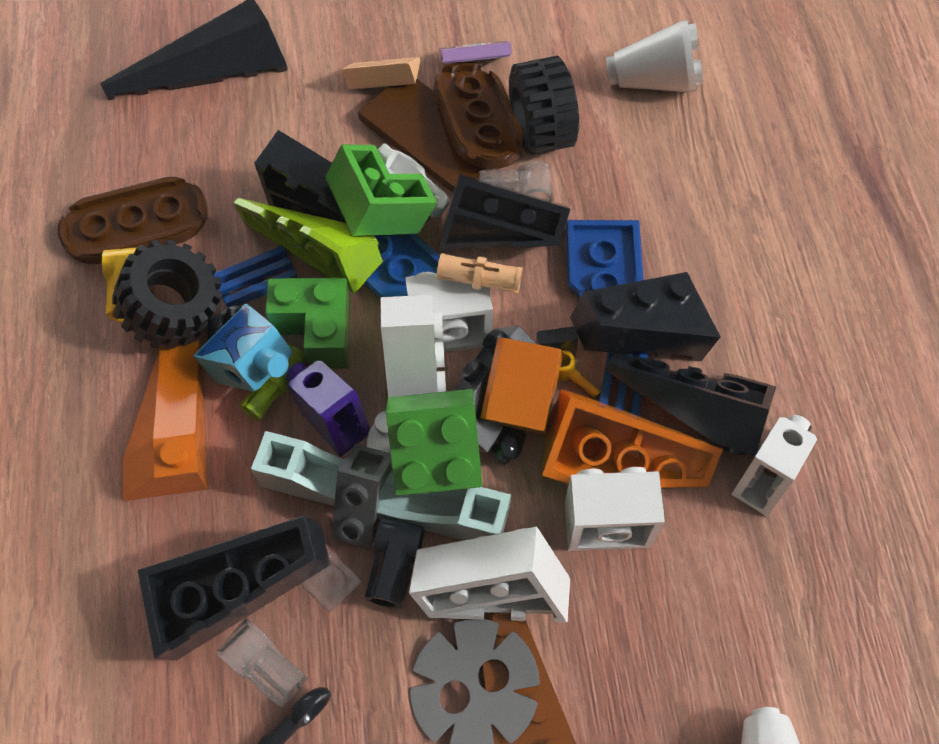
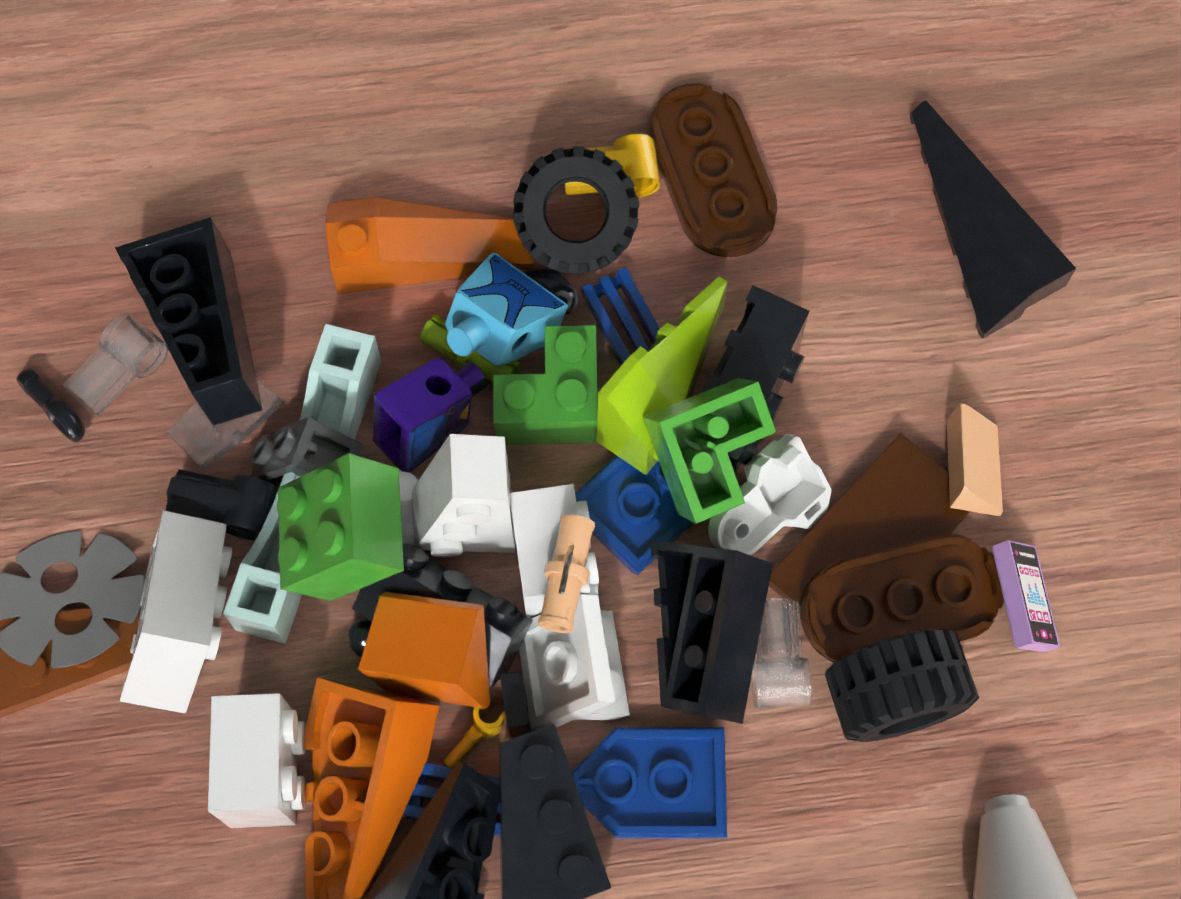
camera: 90 degrees right, 5 degrees up
(539, 303) = (576, 671): none -> white bracket

